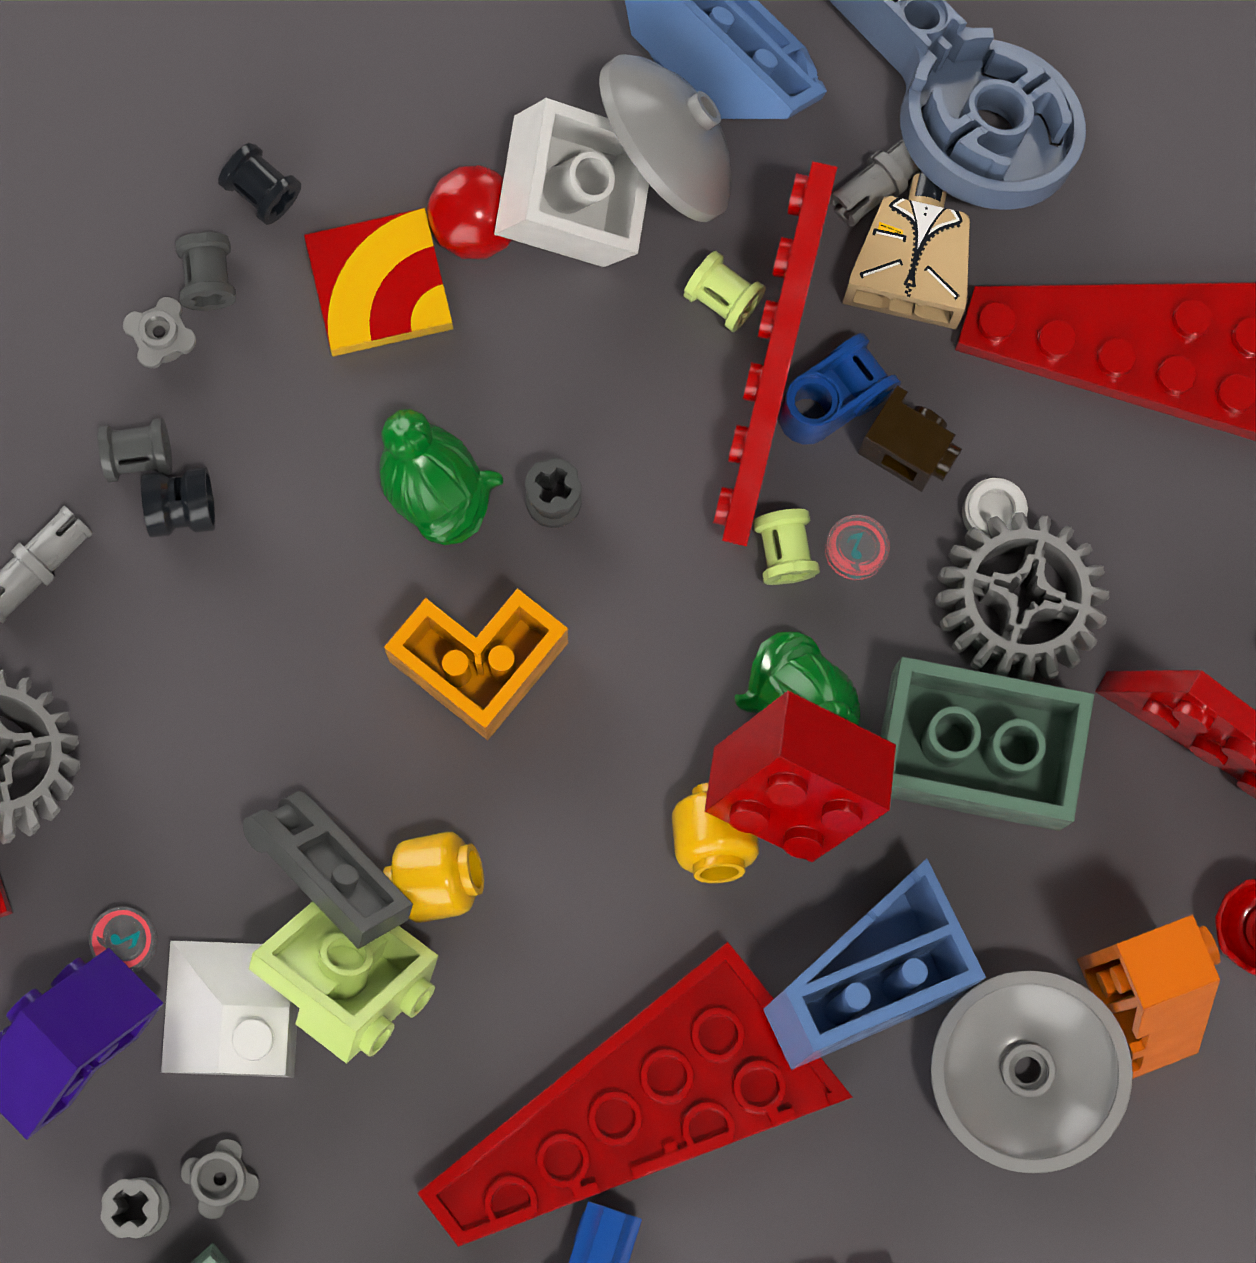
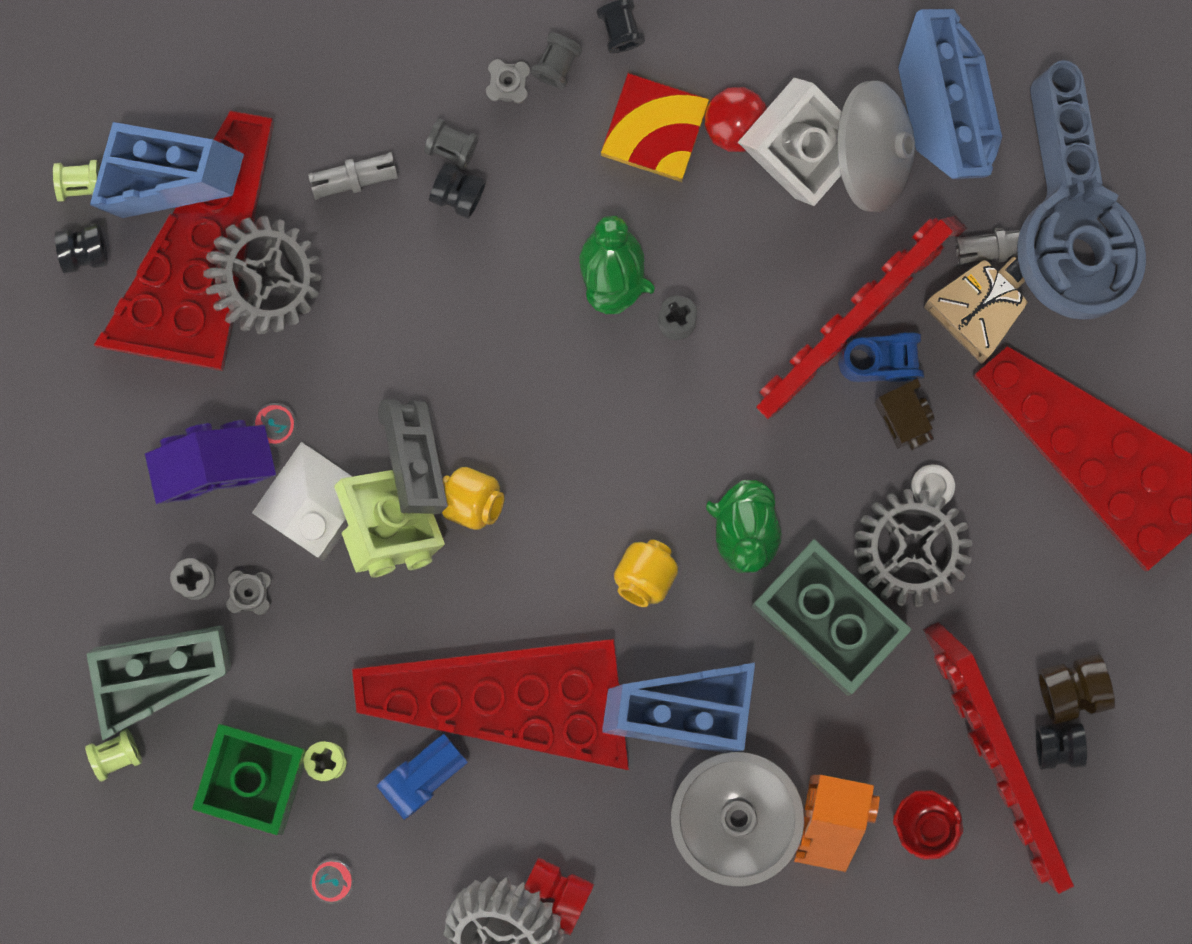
camera: 40 degrees right, 5 degrees up
(484, 674) = (569, 400): light orange brick -> none
(724, 291) = (854, 258): yellowish green bush -> none
(786, 546) = (793, 432): yellowish green bush -> none
(800, 777) = (710, 572): red brick -> none
(857, 547) = (836, 458): clear tile -> none

